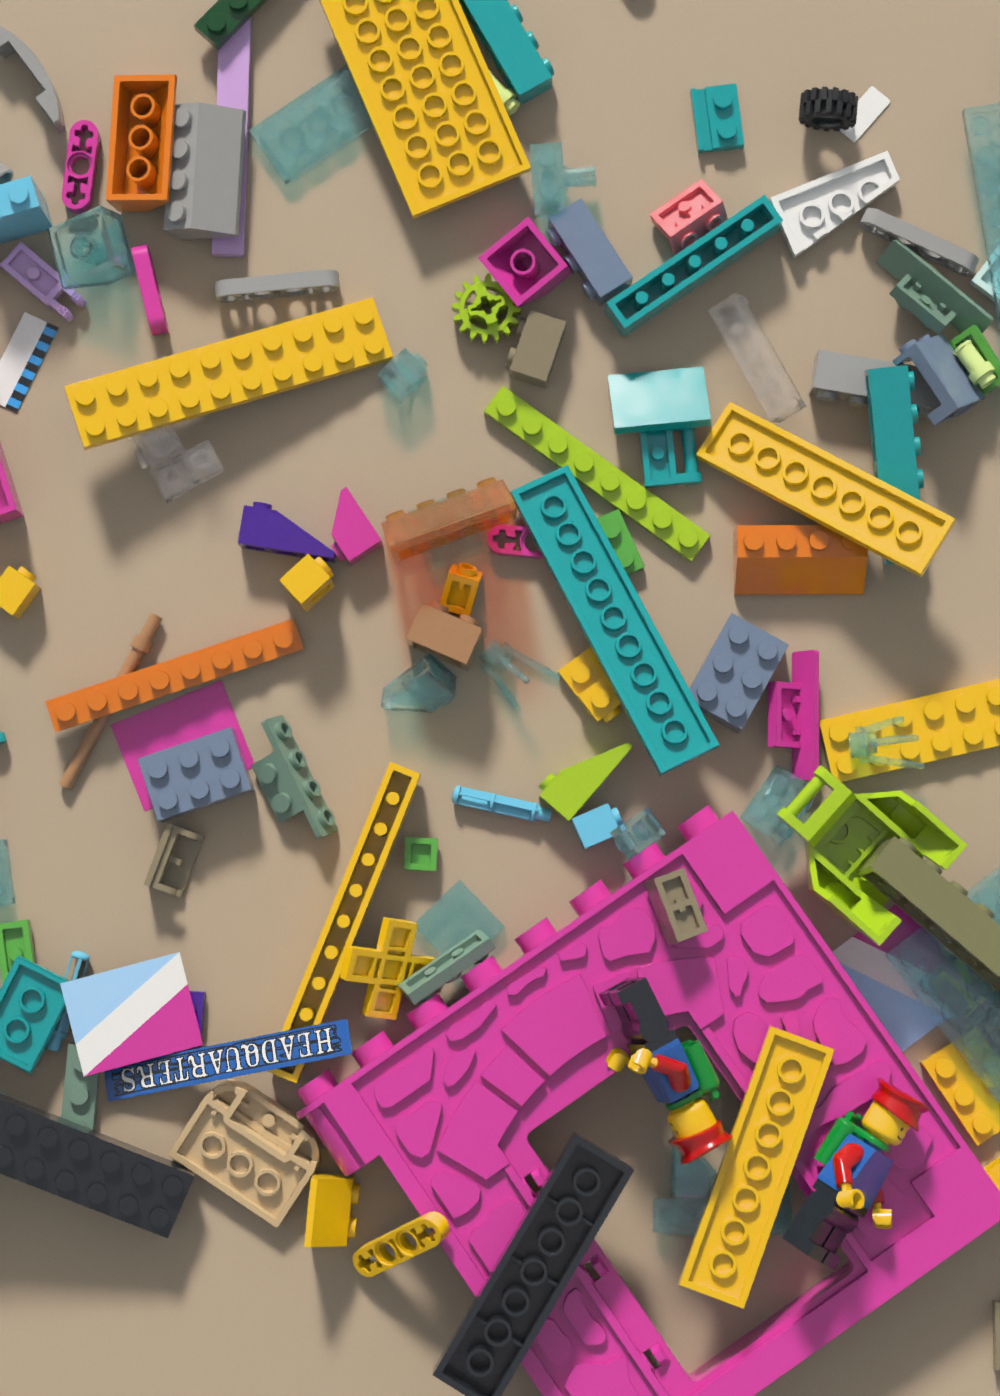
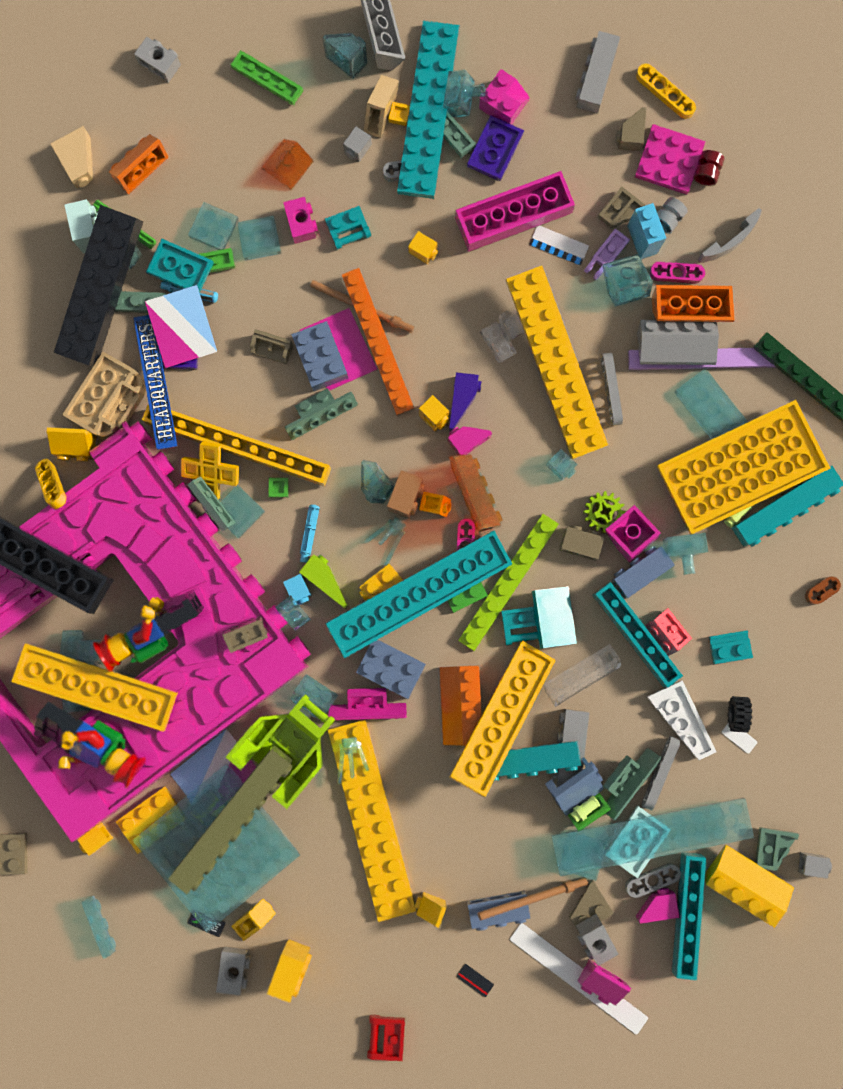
camera: 85 degrees right, 0 degrees up
(150, 290) = (605, 315): dark pink beam -> none

